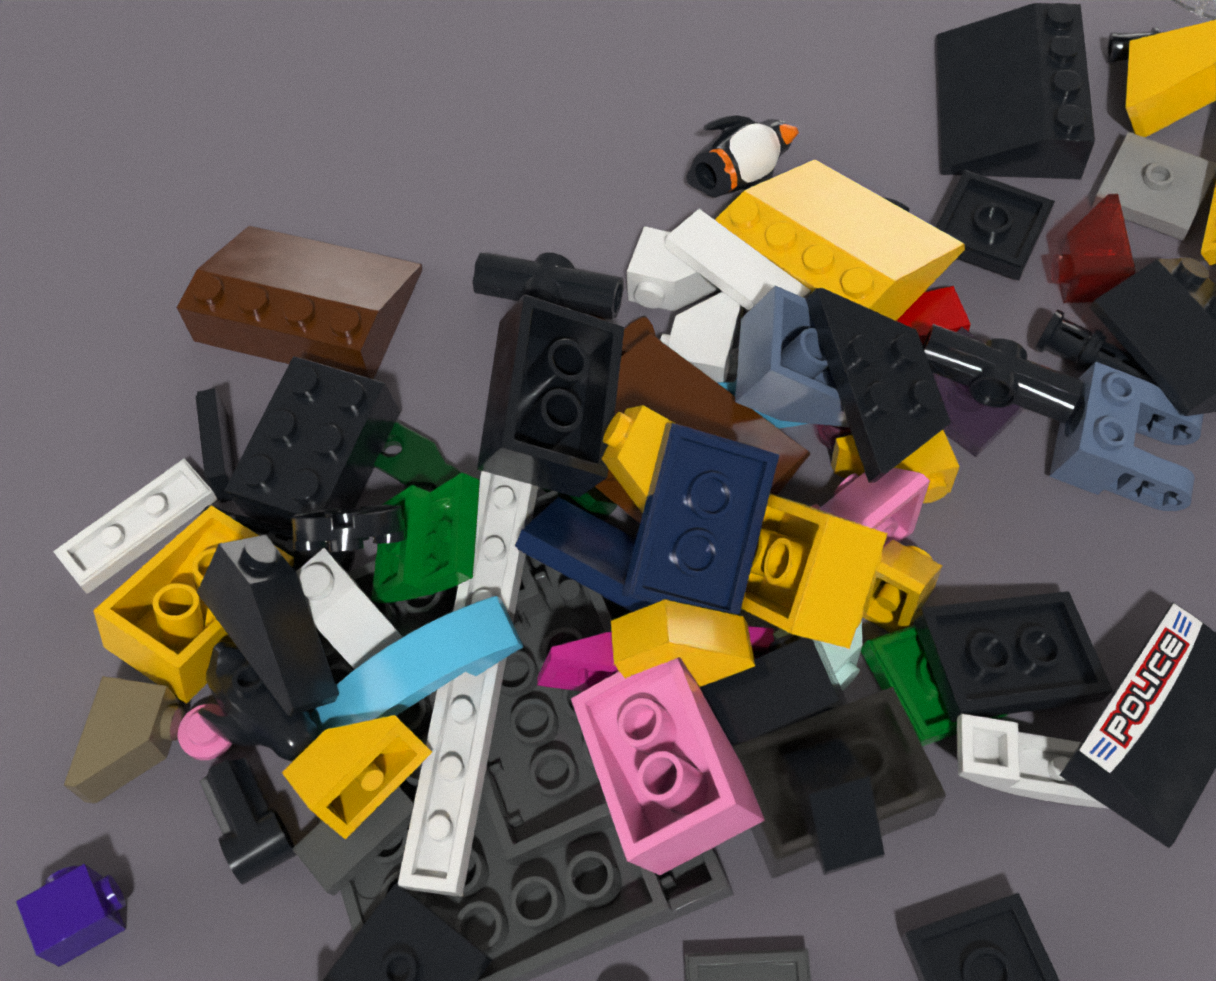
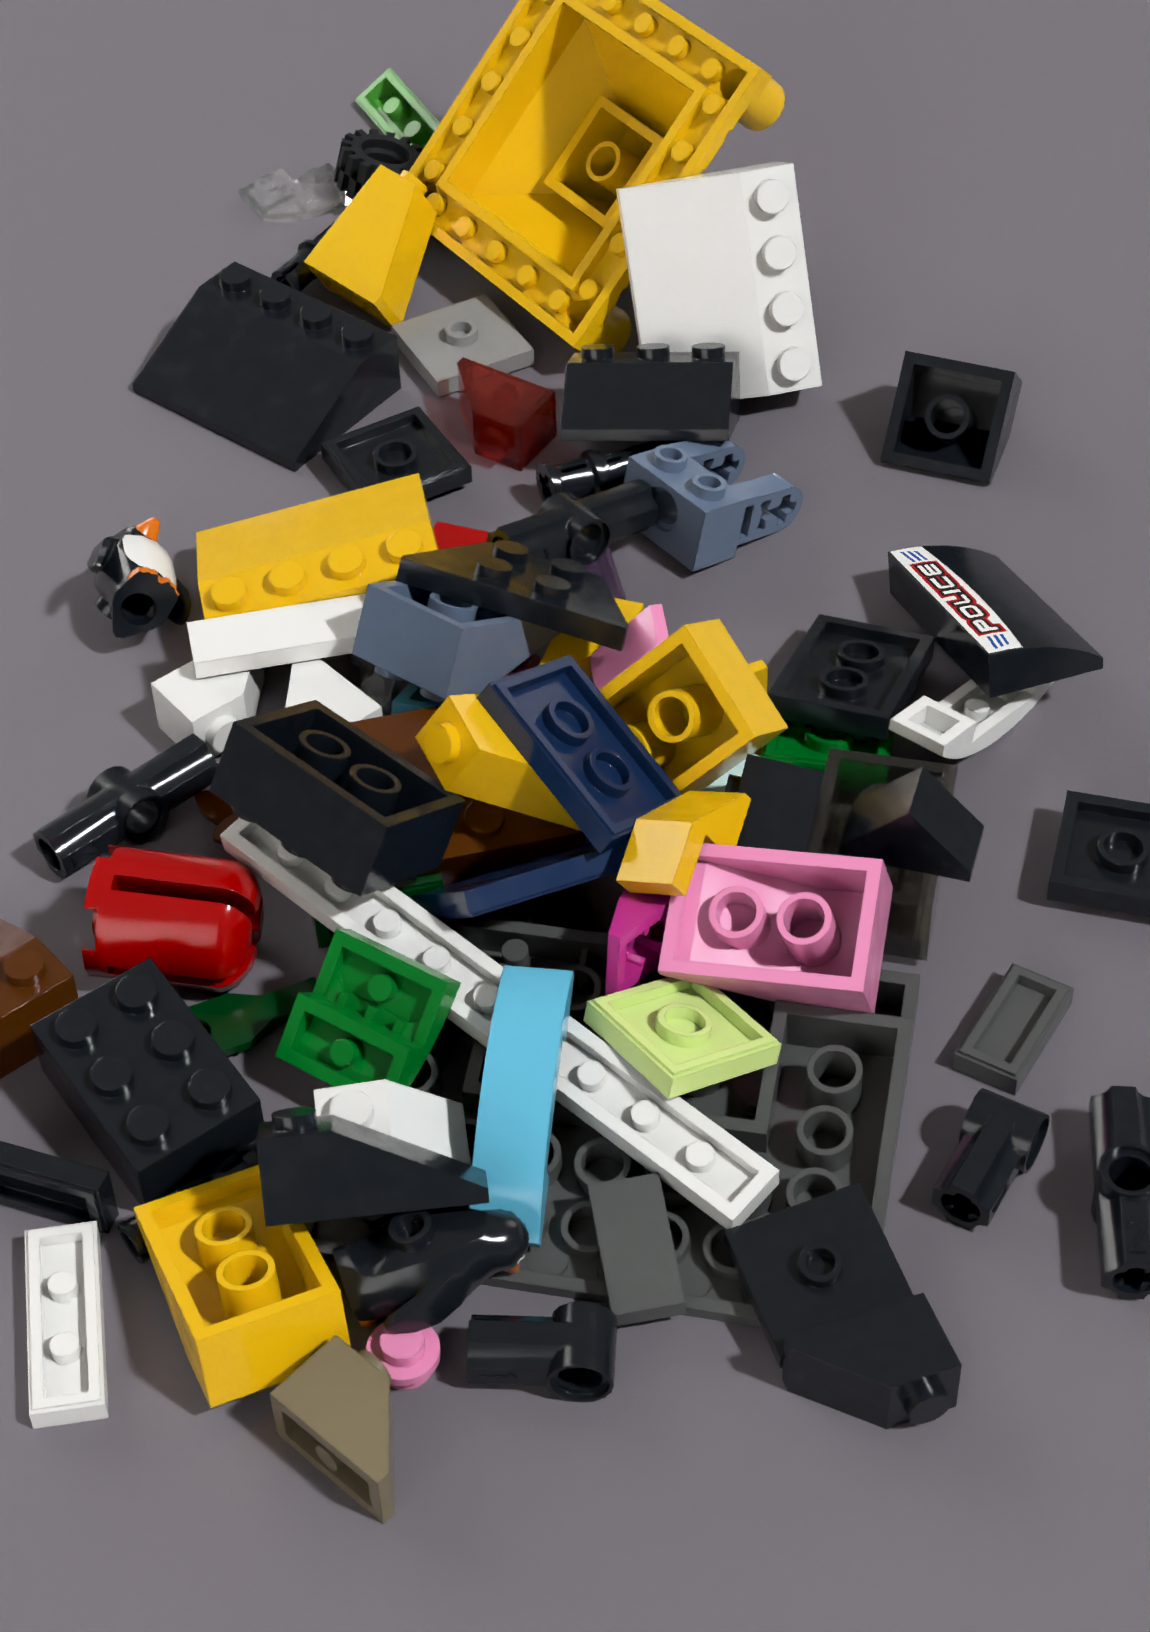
camera: 60 degrees left, 15 degrees down
(72, 913) = (526, 1560): dark purple brick -> none
(347, 528) = (322, 1036): black plate -> none
(355, 769) = (584, 1191): yellow slope -> none
(425, 372) = (178, 909): none -> red cylinder
(531, 752) = (681, 1034): none -> yellowish green plate

